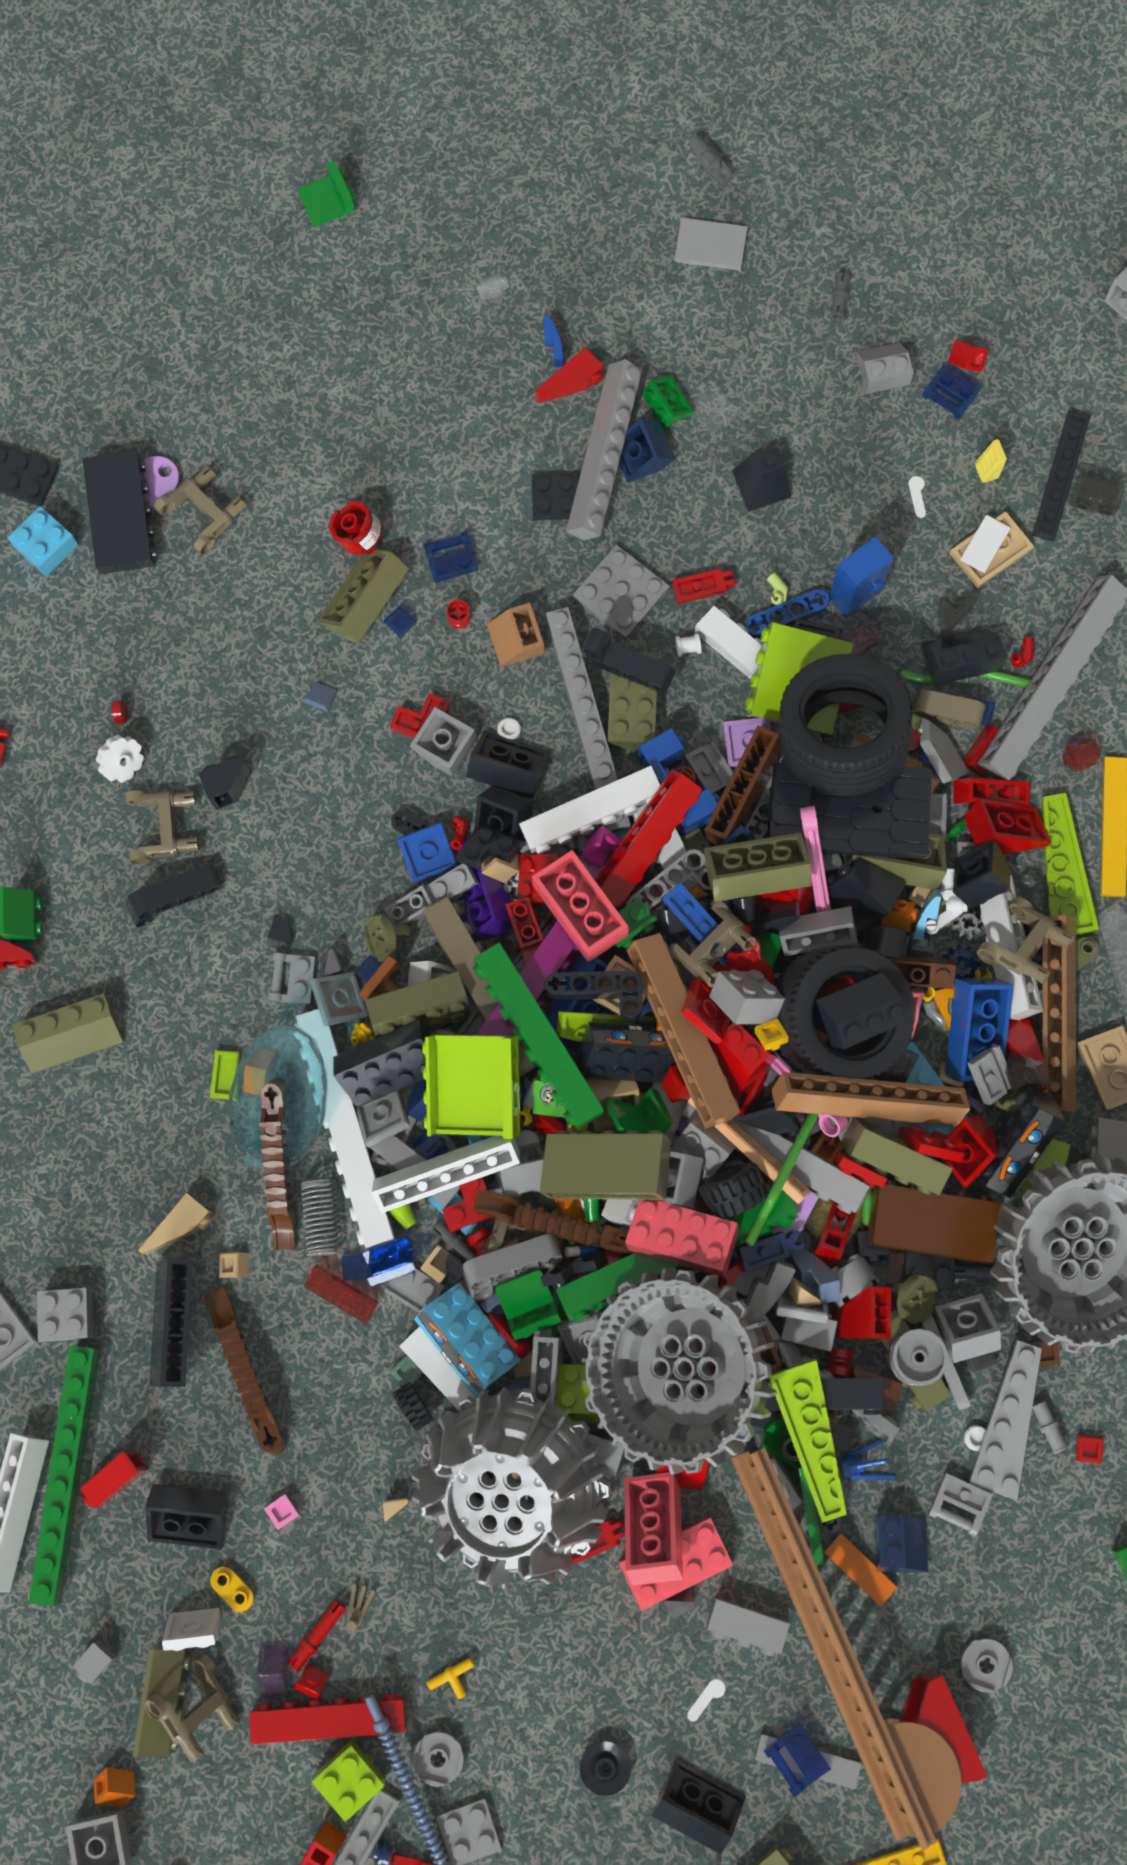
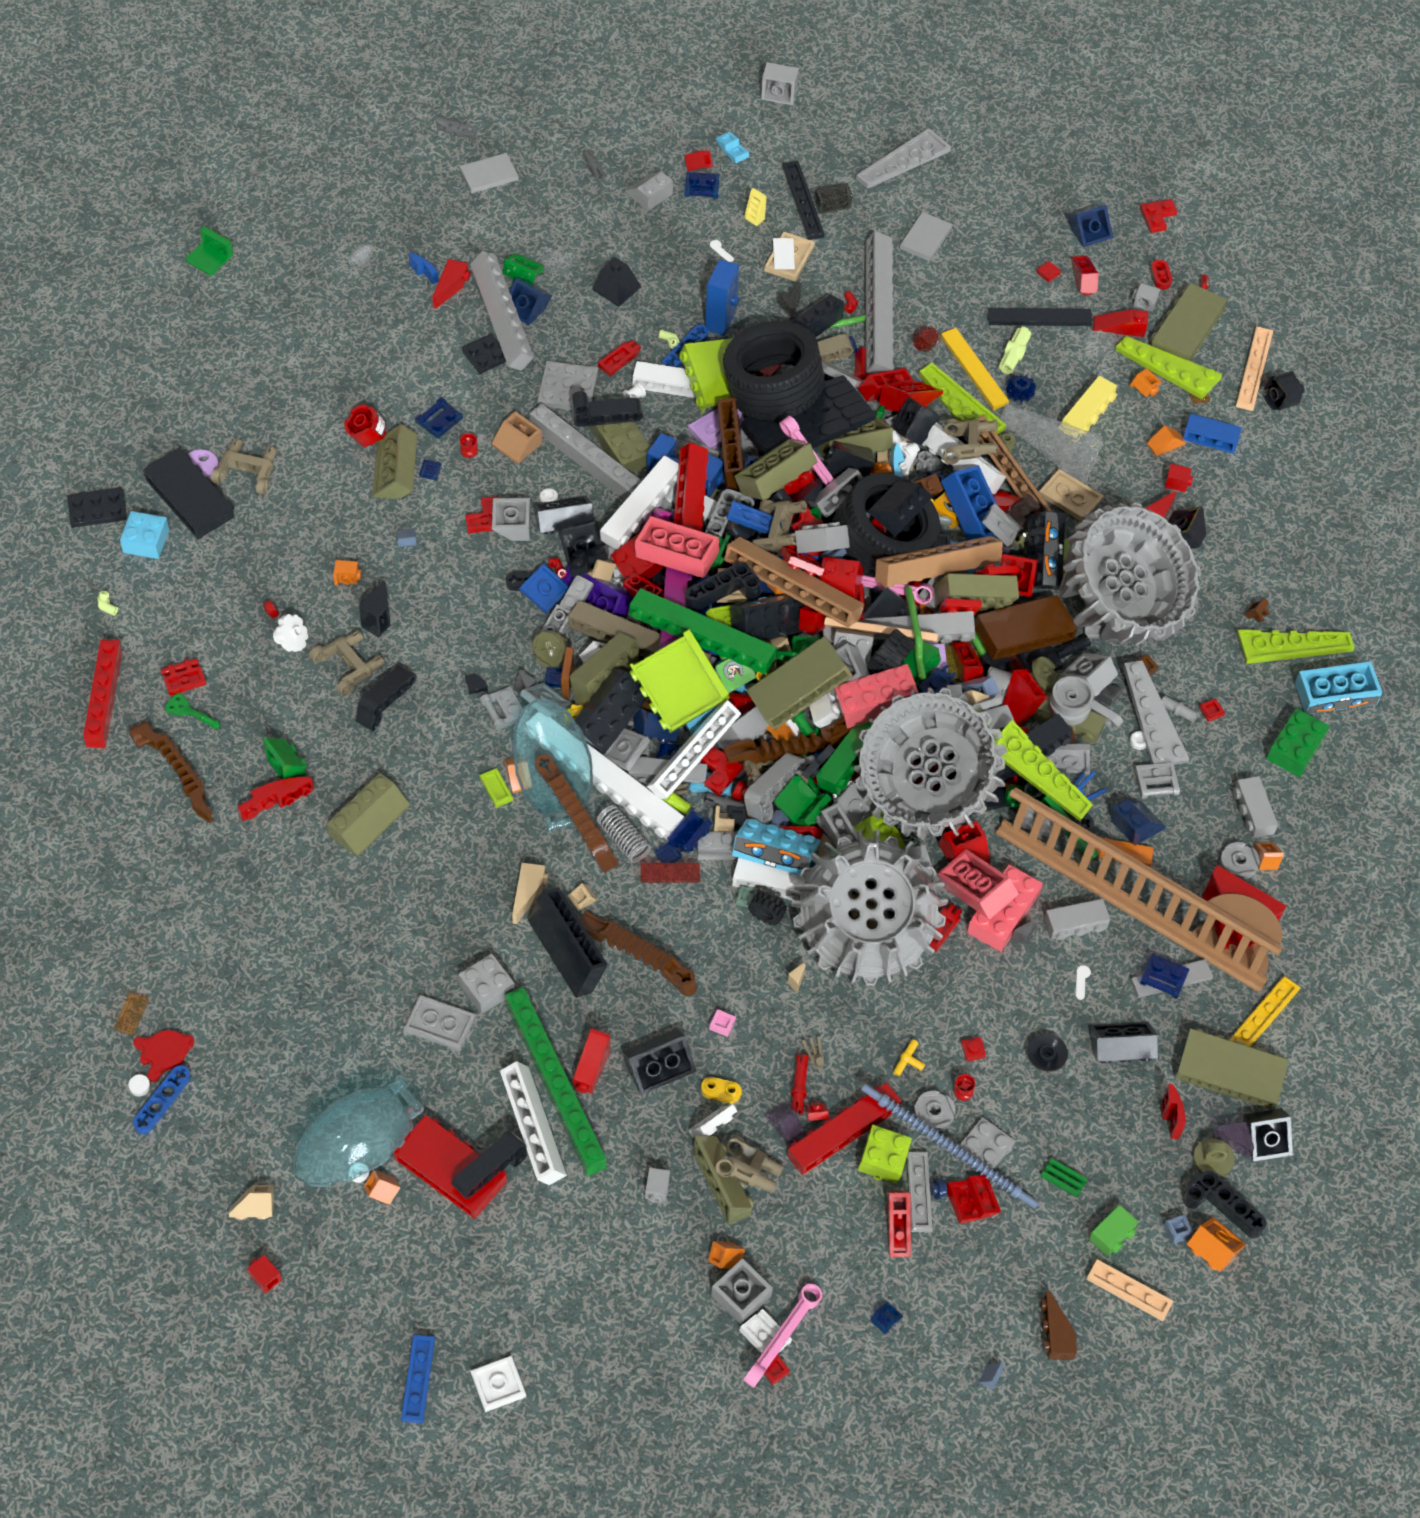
camera: 40 degrees left, 20 degrees down
(226, 710) = (346, 572): none -> orange brick
(485, 1757) = (965, 1083): none -> red wheel
(530, 1708) = (973, 1049): none -> red plate
(771, 1035) = (853, 551): yellow tile -> none
(1023, 355) = (730, 145): none -> medium azure slope
(1025, 1676) = (1269, 856): none -> orange slope
(1050, 1609) = (1255, 807): none -> light grey brick

